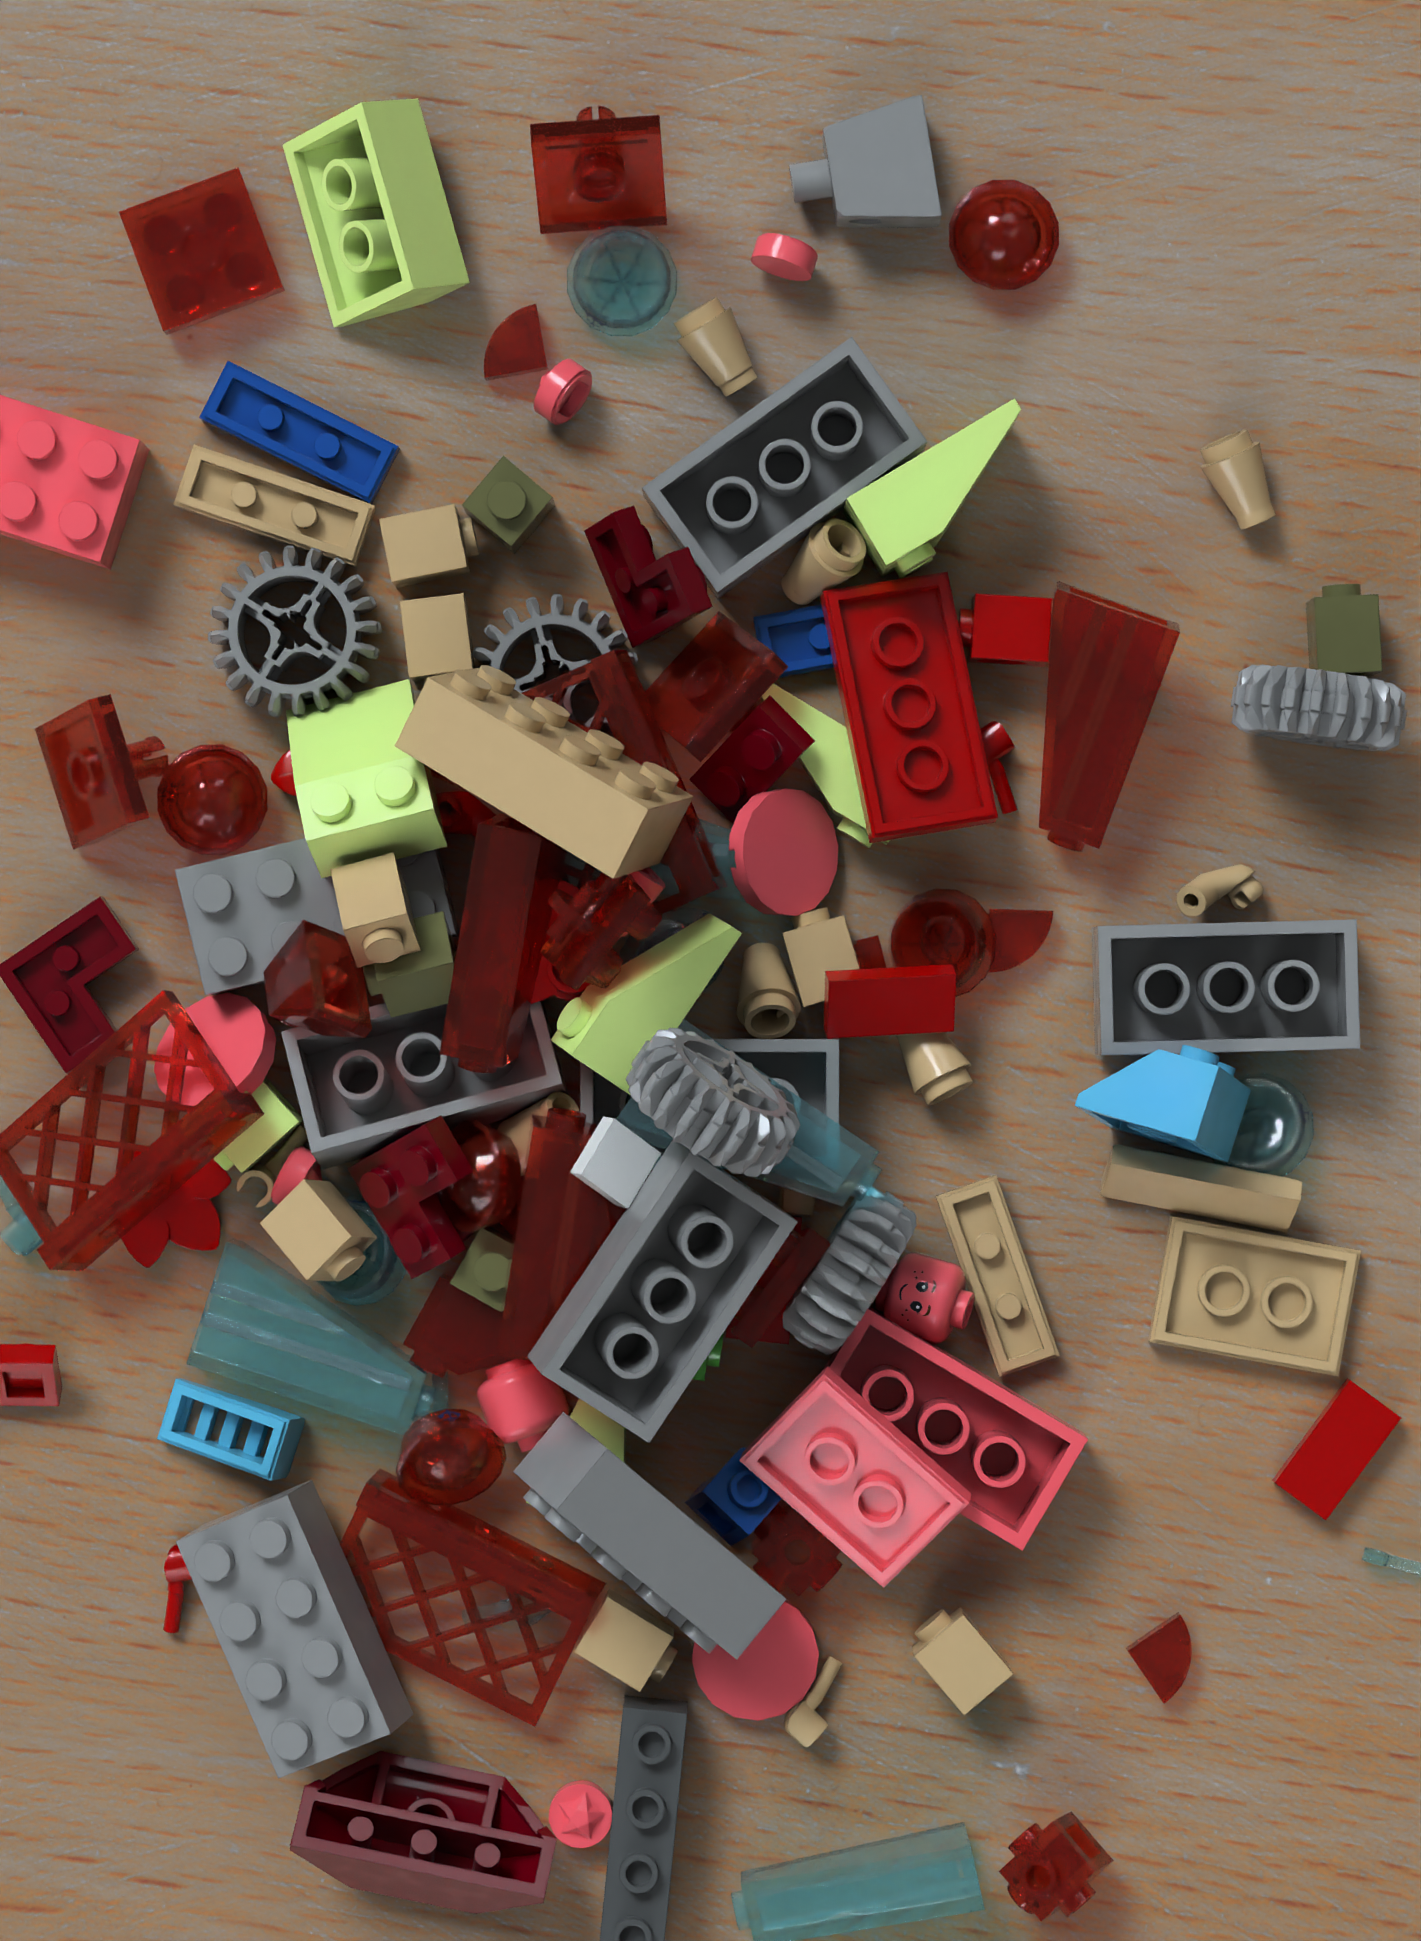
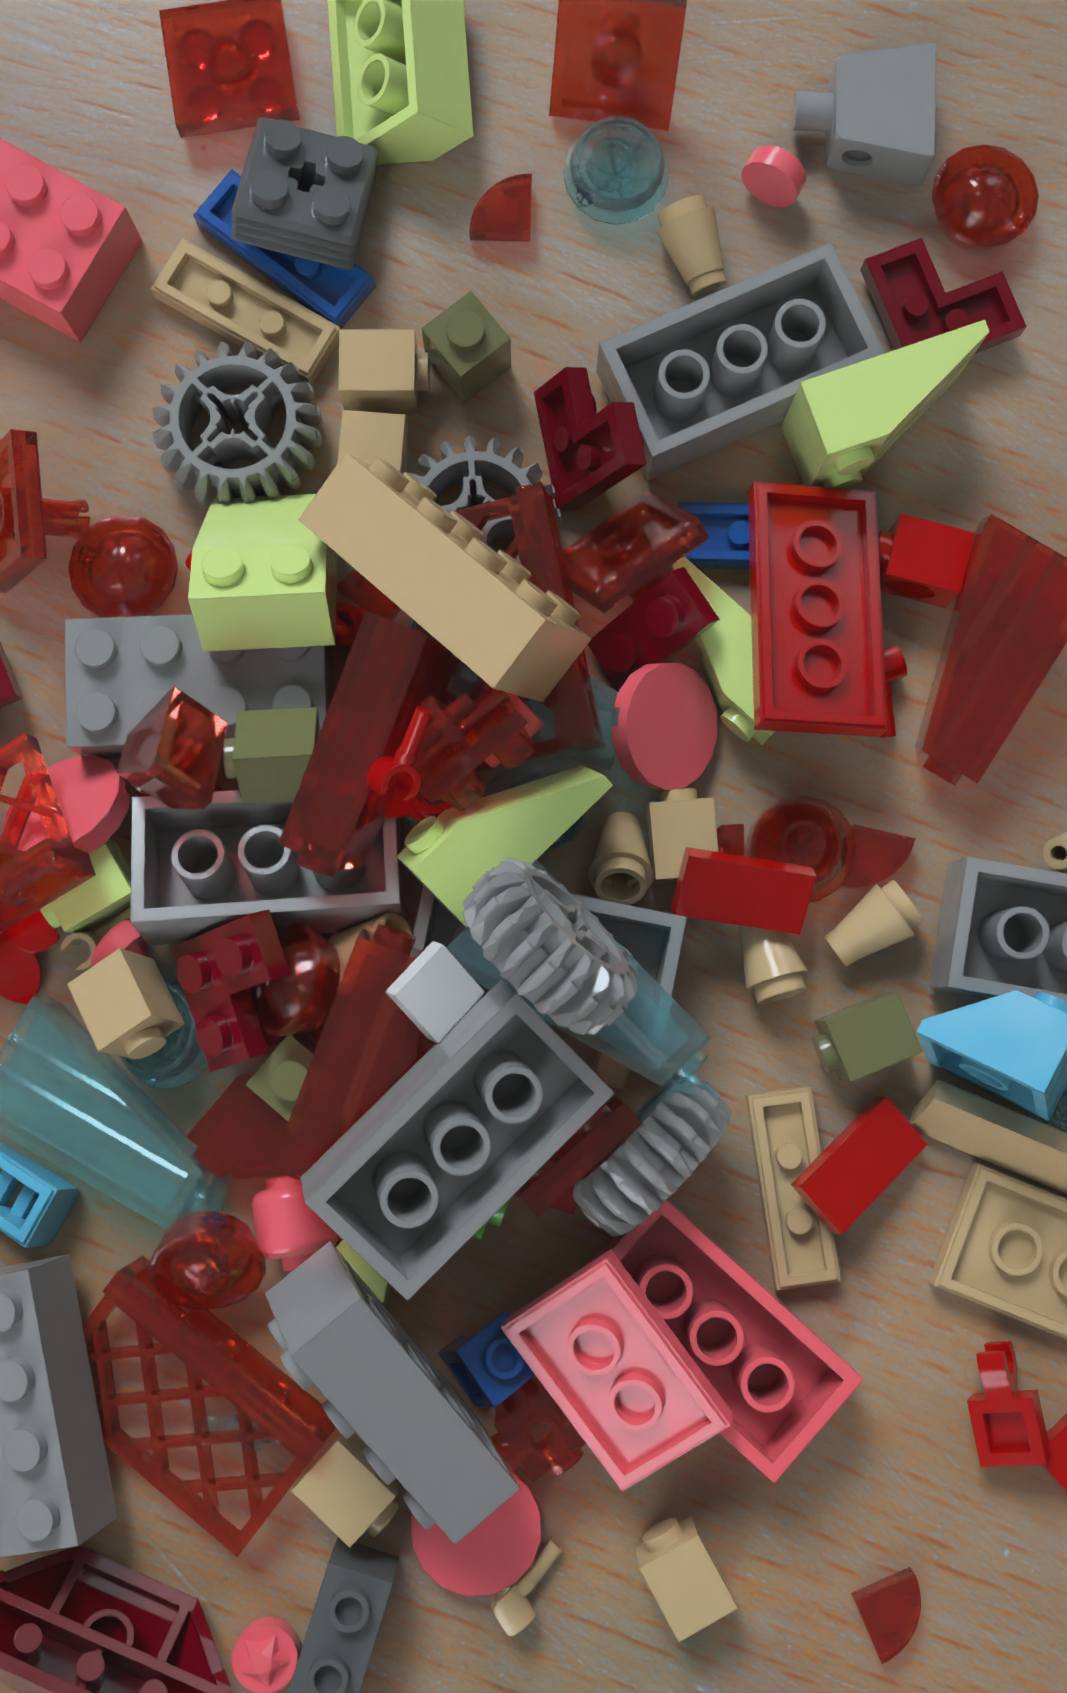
camera: 10 degrees right, 5 degrees down
(280, 402) = (304, 193): none -> dark grey brick
(375, 910) = (246, 688): tan brick -> none
(530, 964) = (403, 760): none -> red hand
(562, 391) = (540, 257): coral tile -> none
(826, 559) = (760, 455): tan cone -> none
(926, 1297) = (722, 1197): coral head -> none
(974, 379) = (918, 308): none -> dark red plate
(1028, 1003) = (874, 923): none -> tan cone
(1037, 1117) = (866, 1037): none -> olive brick
(1055, 1240) = (859, 1164): none -> red tile
(1239, 1453) = (1006, 1421): none -> red plate

